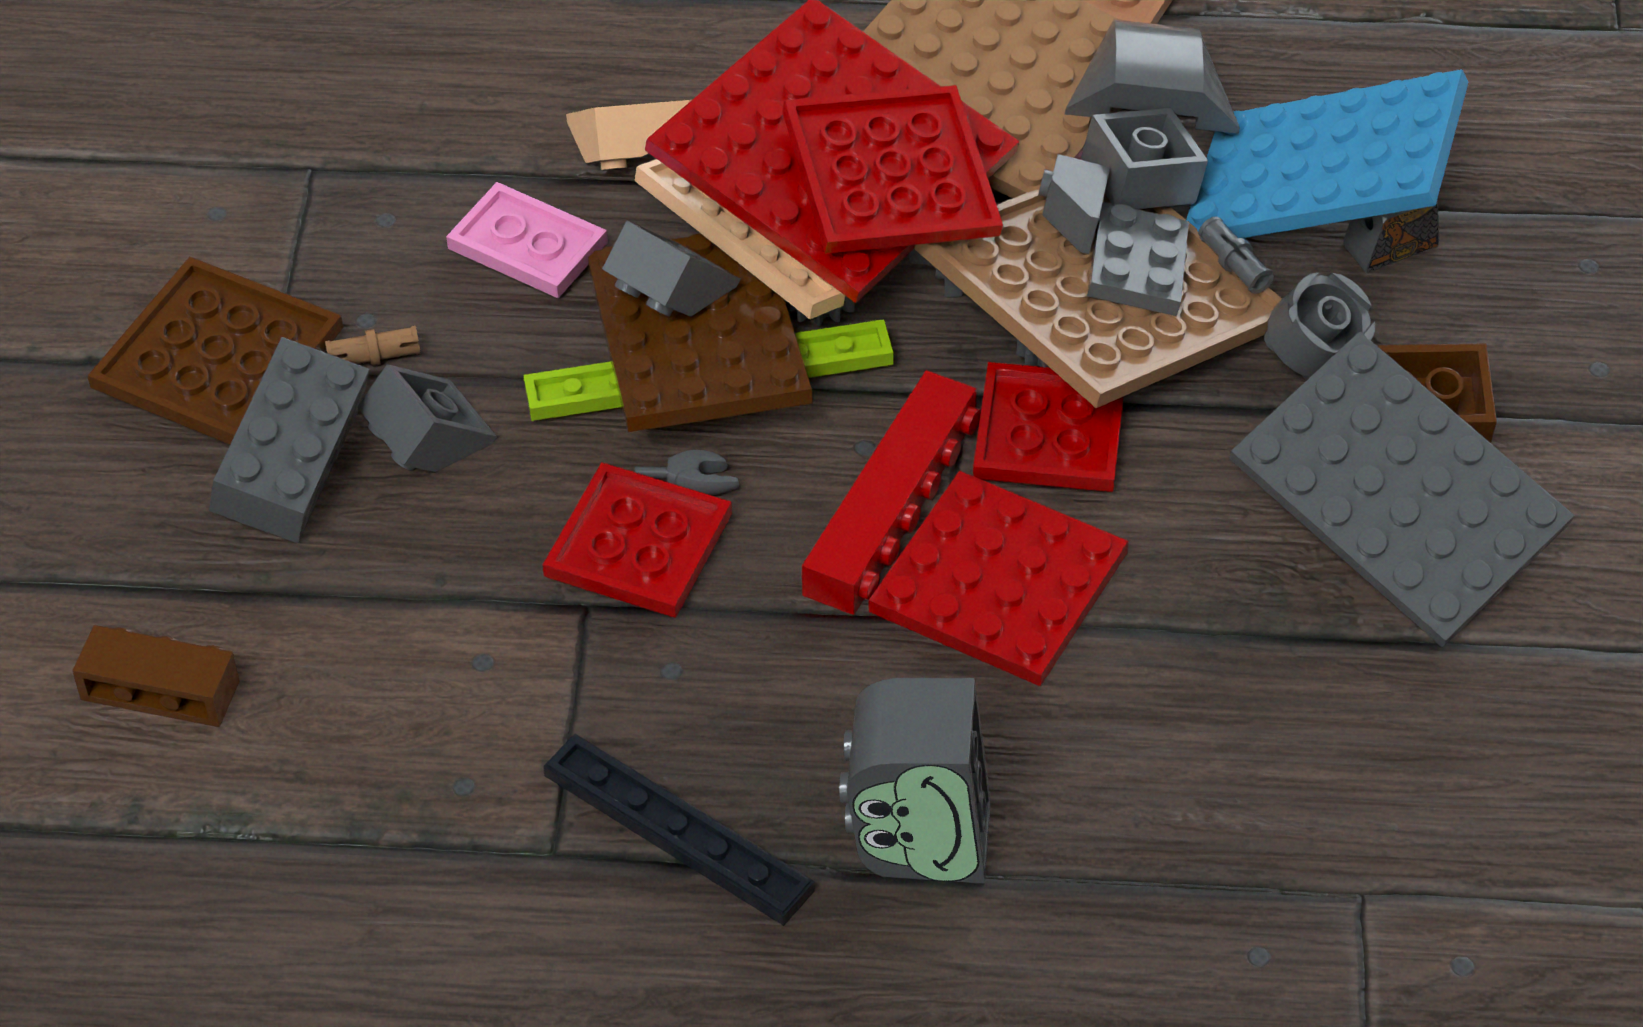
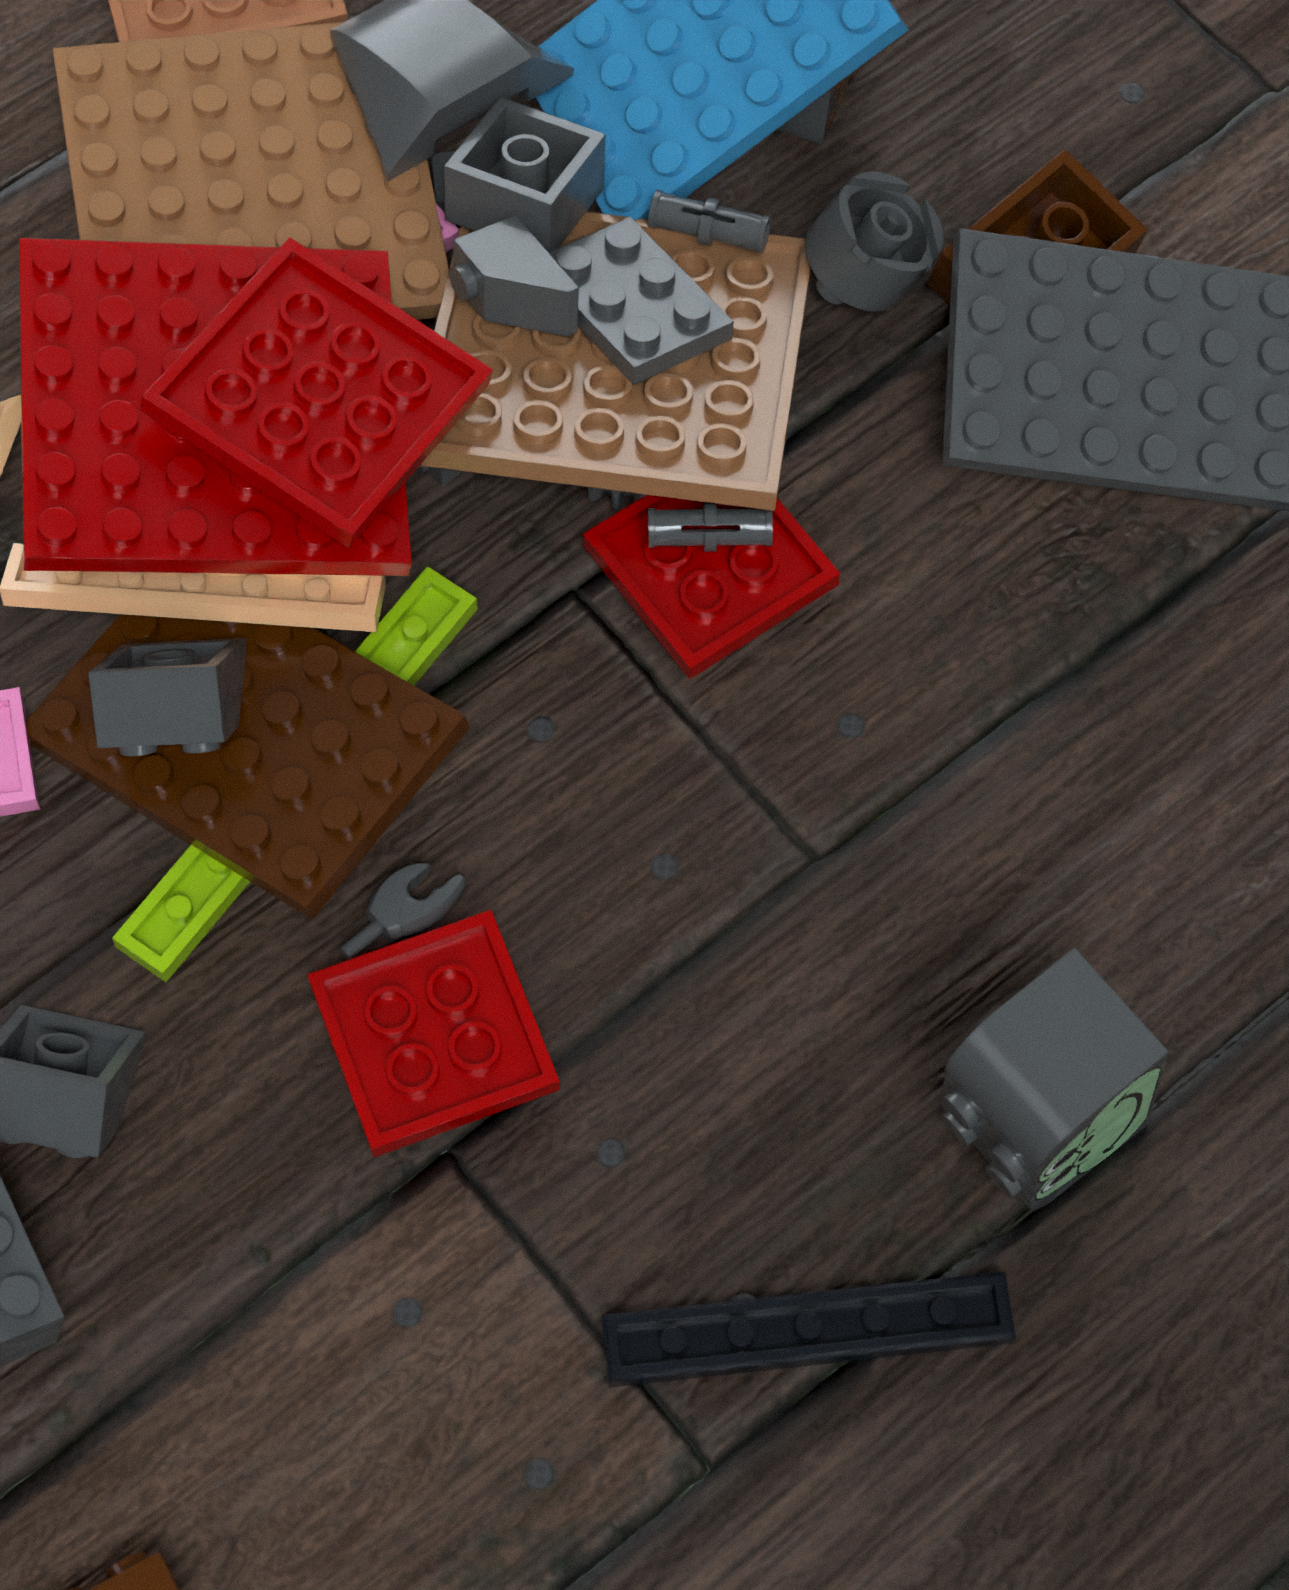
camera: 45 degrees left, 15 degrees up
(890, 493) = (637, 766): red brick -> none
(999, 577) = (827, 773): red plate -> none
(1082, 416) = (754, 527): none -> dark grey pin

